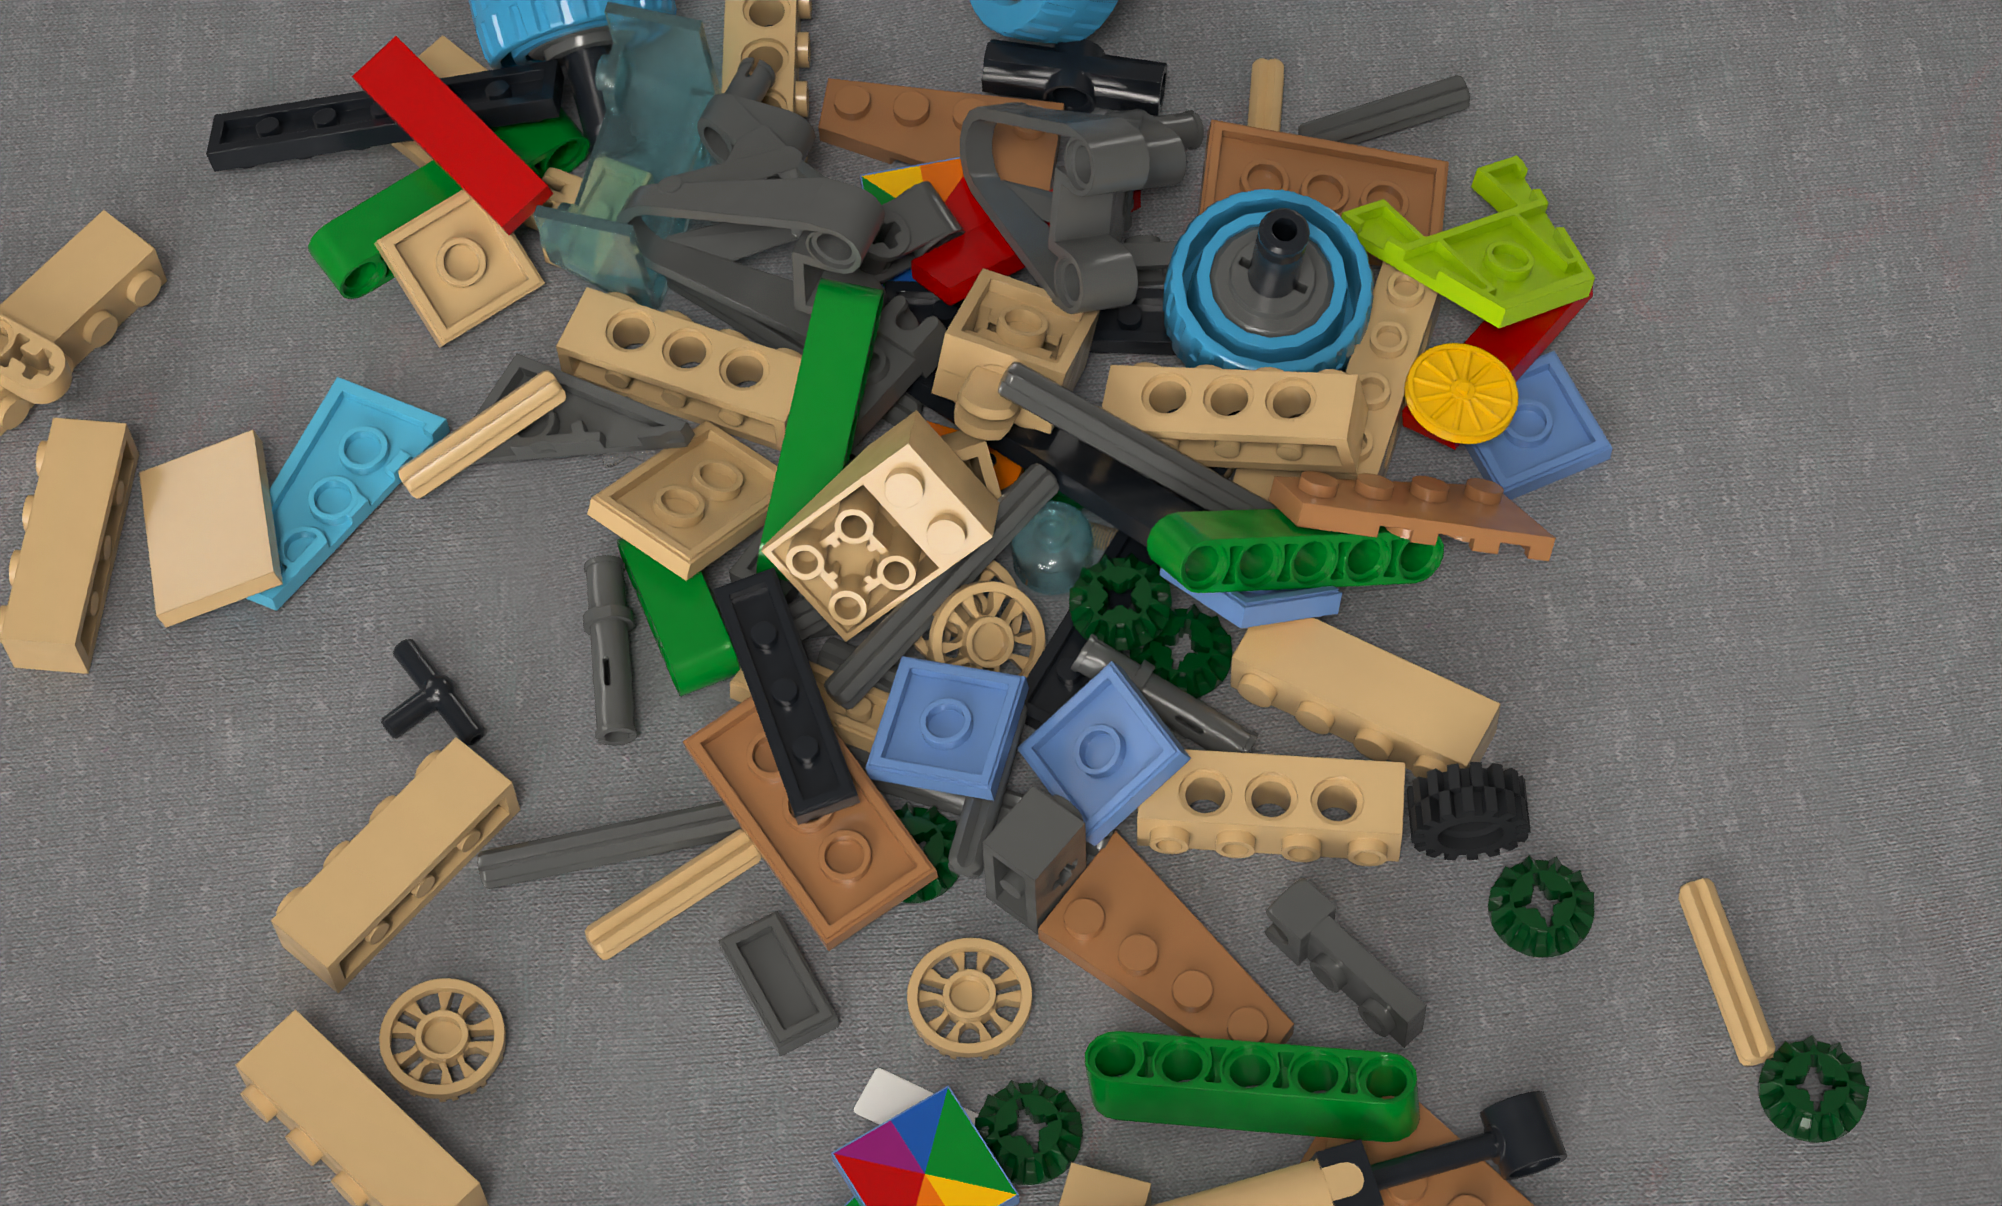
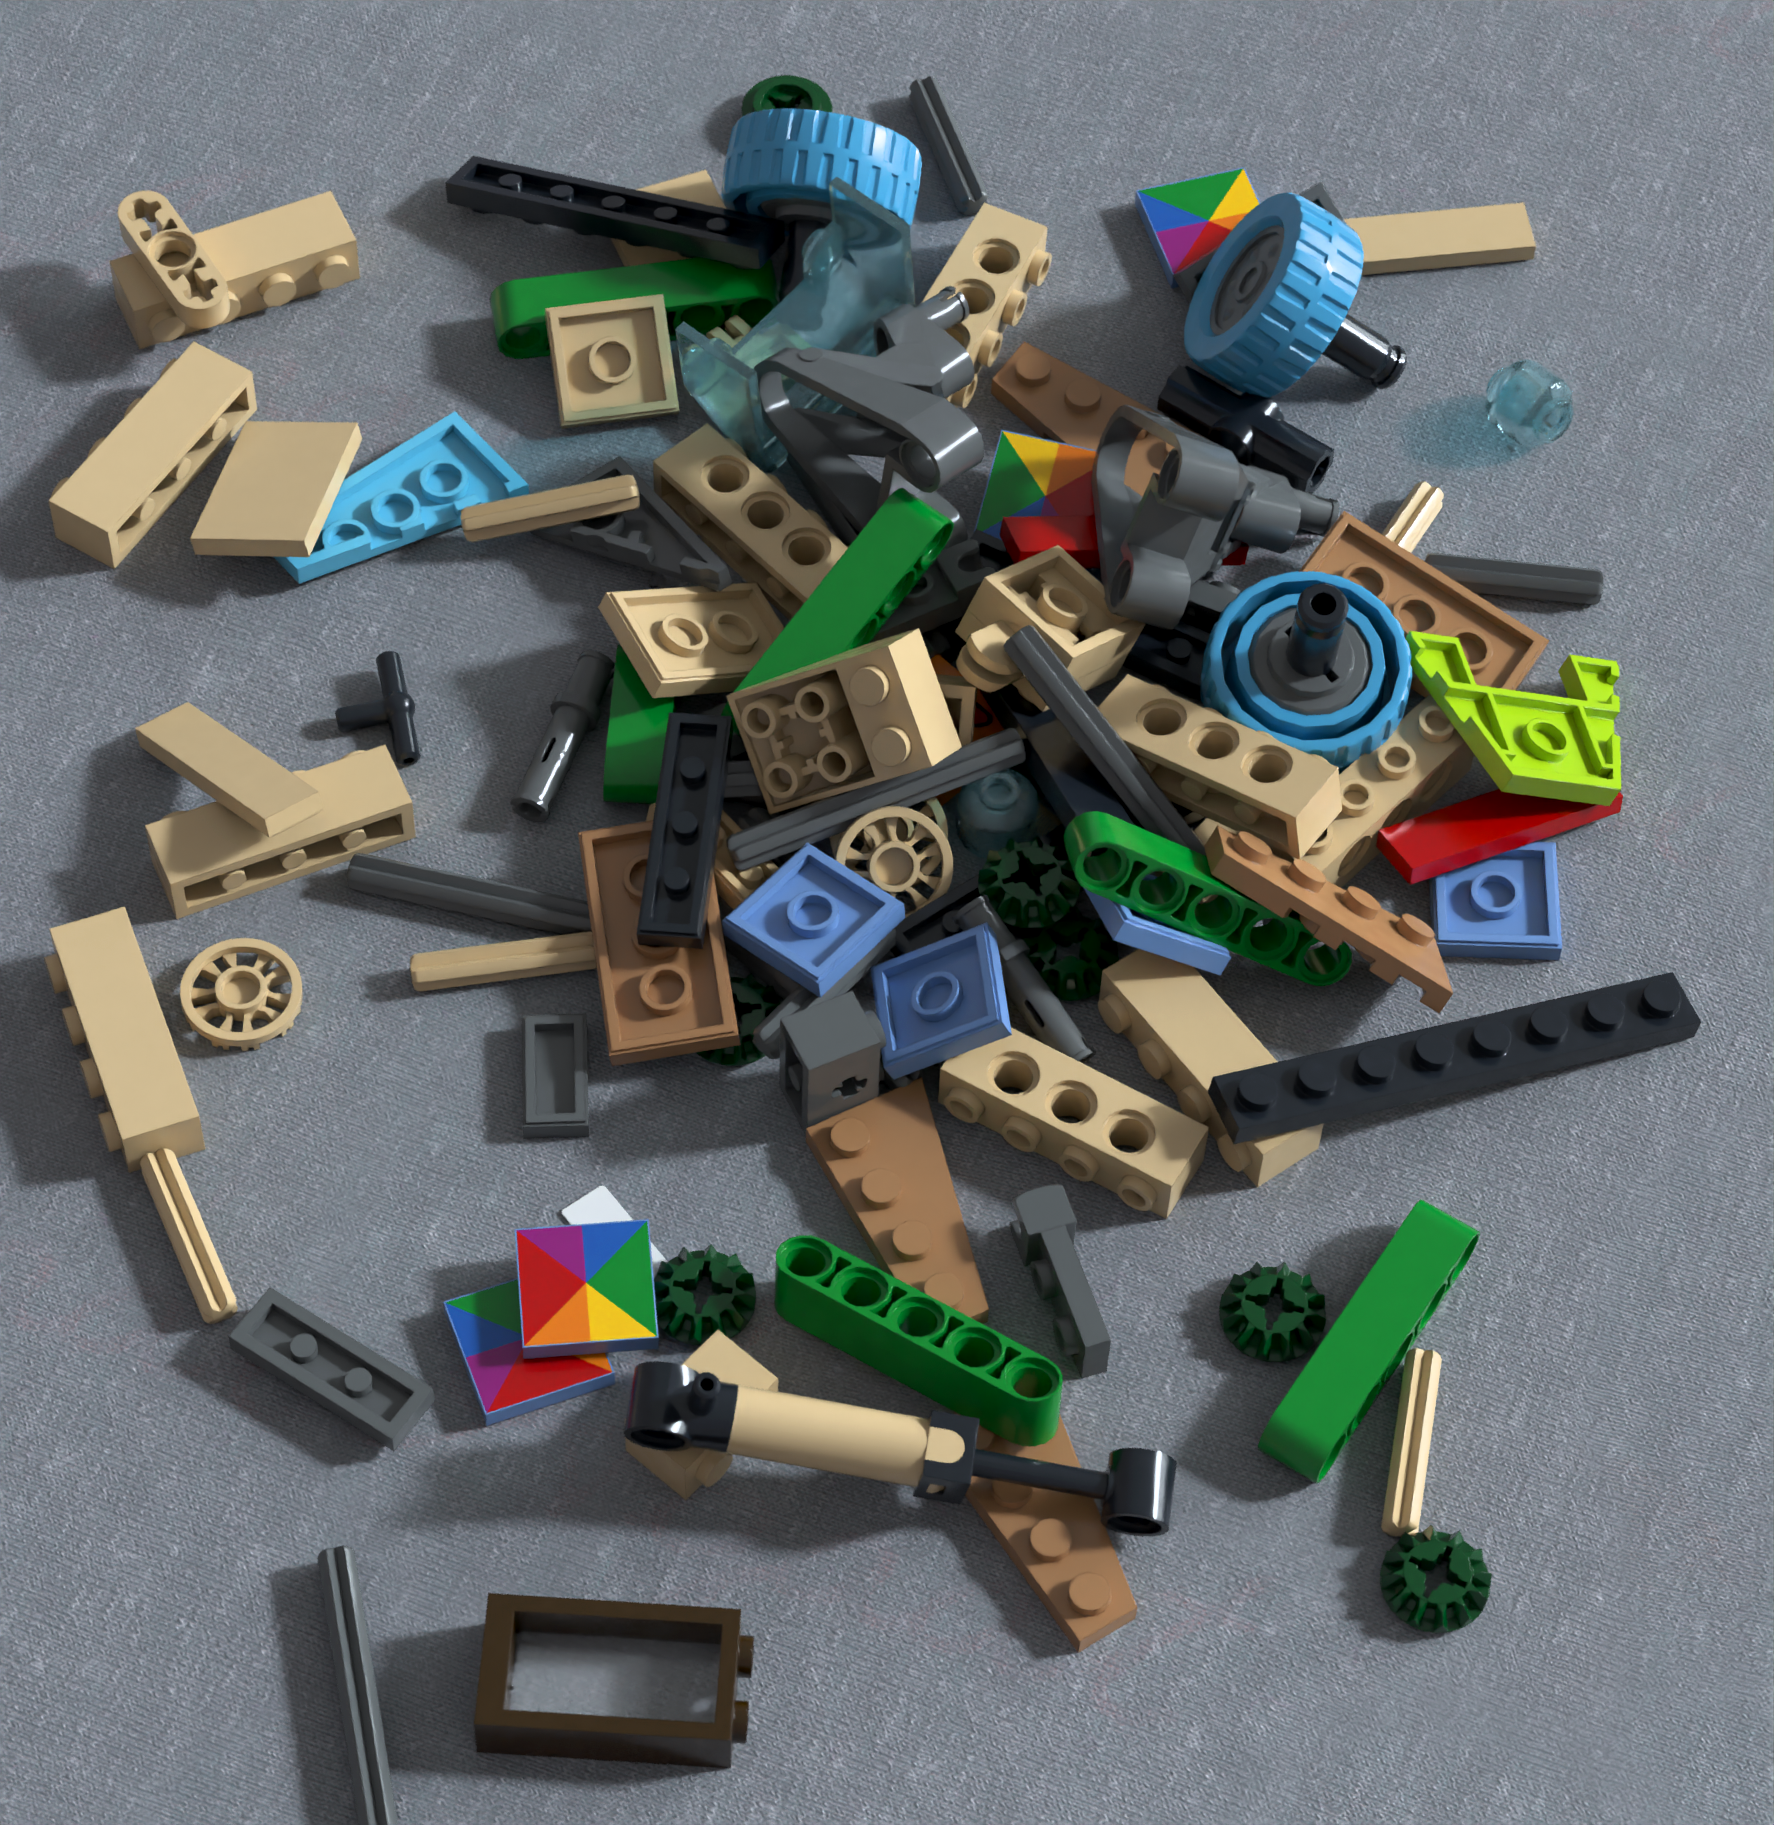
camera: 20 degrees right, 5 degrees down
(321, 828) = (229, 769): none -> tan tile
(452, 135) = (655, 244): red tile -> none
(911, 227) = (1008, 488): dark grey piece -> none
(969, 998) = (714, 1162): tan wheel -> none
(1461, 393) = (1438, 835): yellow wheel -> none
(1468, 811) = (1244, 1194): black tyre -> none
(1577, 598) = (1452, 1057): none -> black plate
(1642, 896) = (1368, 1341): none -> green beam

